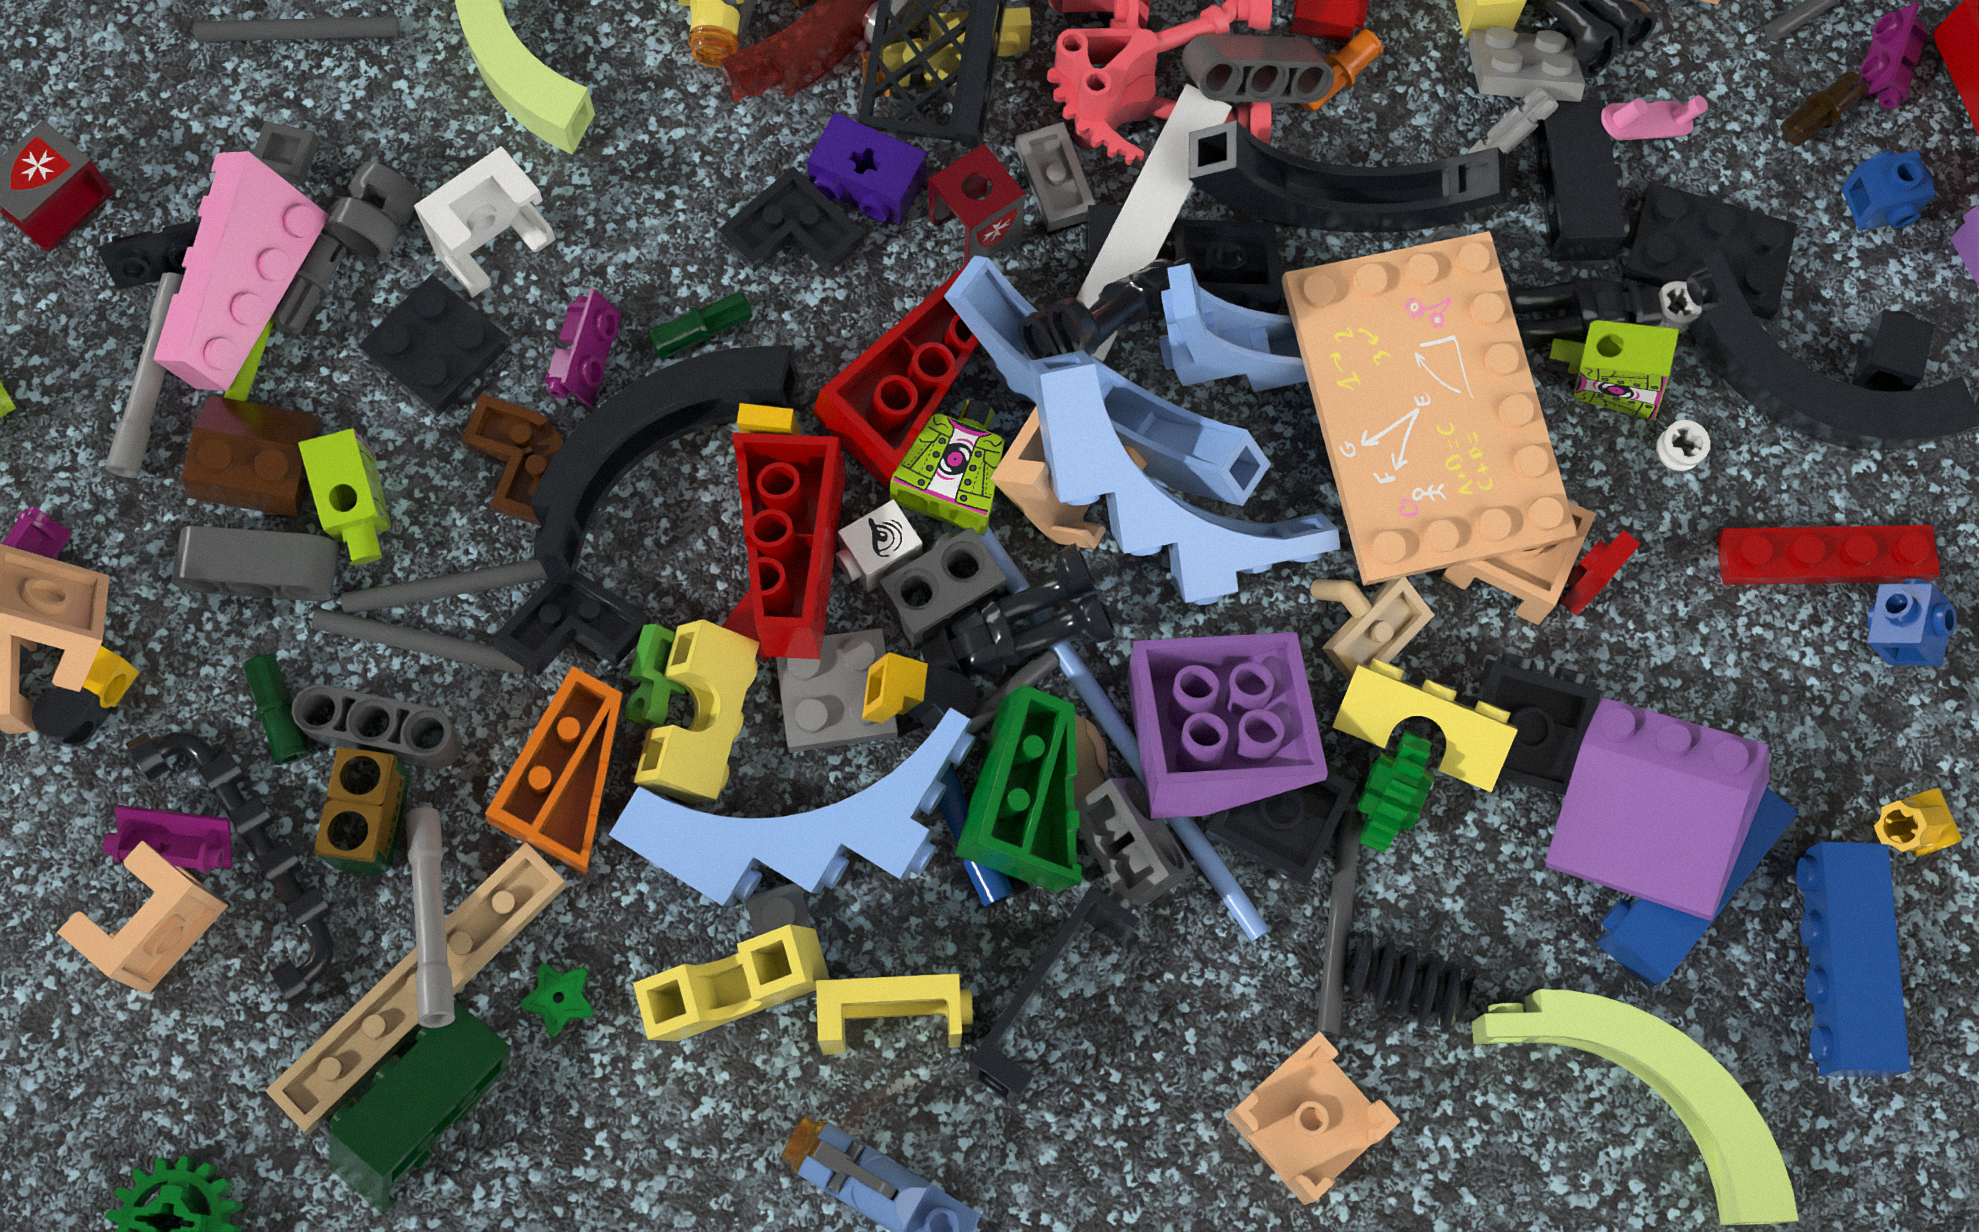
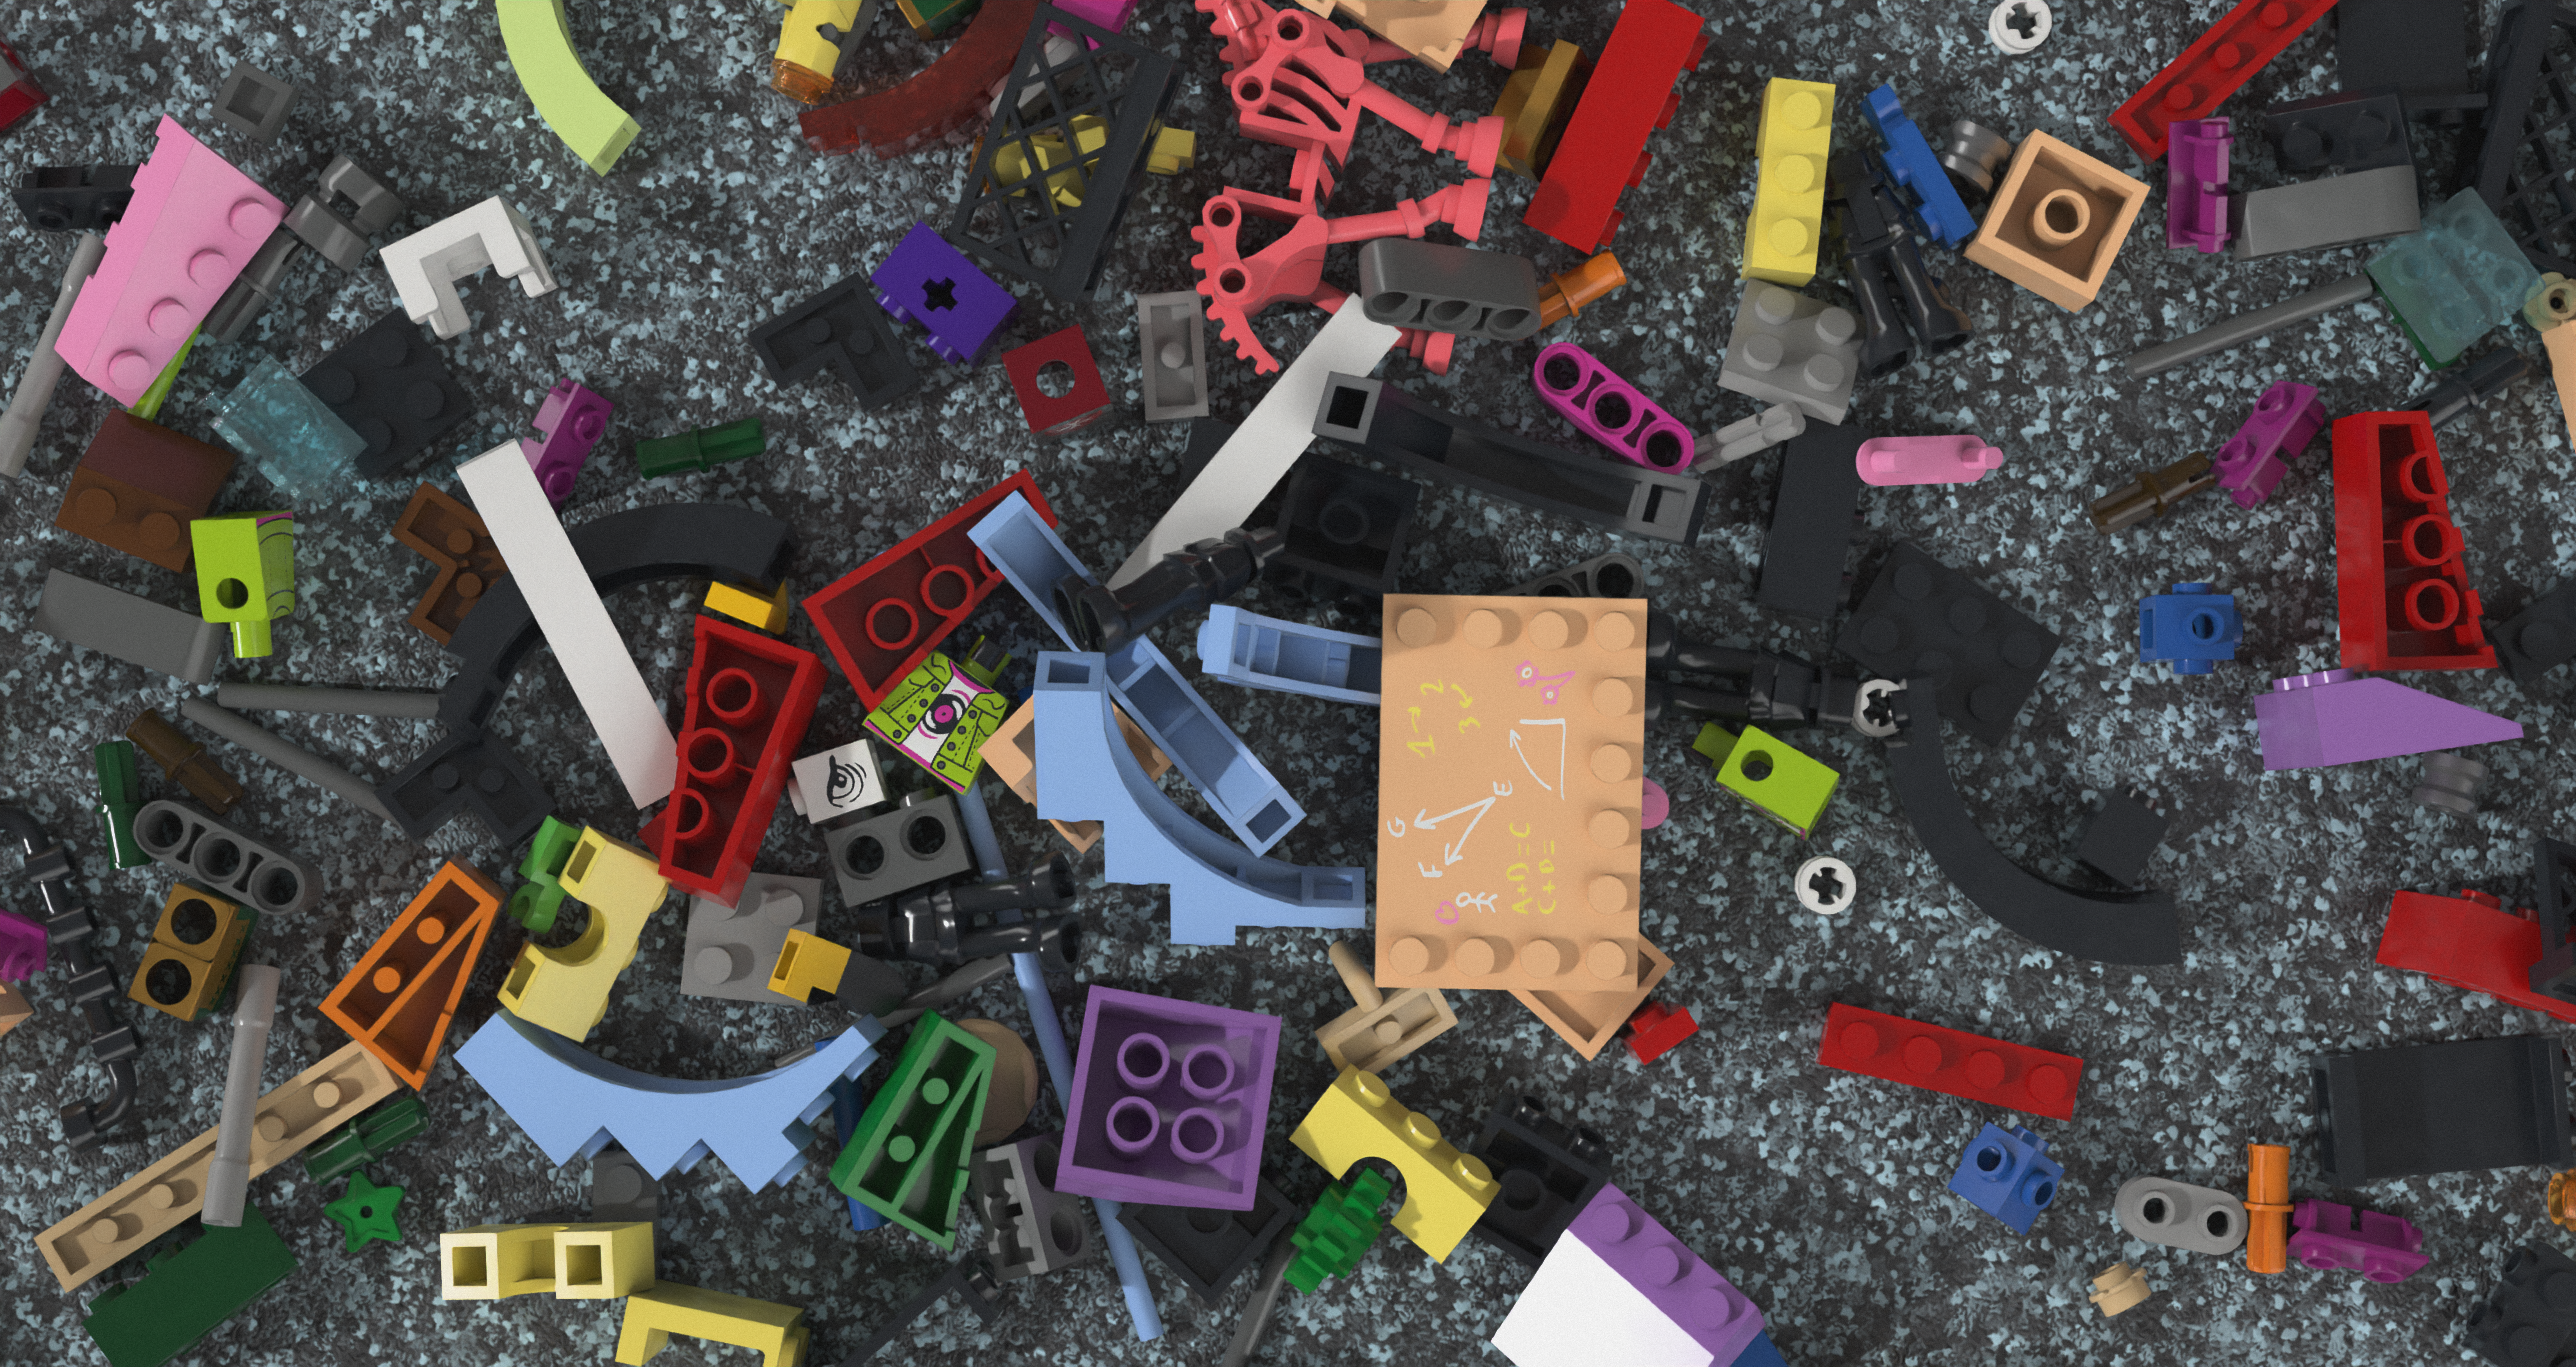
camera: 20 degrees right, 15 degrees up
(322, 660) = (185, 762): none -> dark brown axle
(360, 378) = (289, 427): none -> clear light blue bracket
(546, 933) = (366, 1139): none -> dark green axle
(634, 460) = (573, 620): none -> white tile
(1387, 120) = (1596, 383): none -> dark pink beam

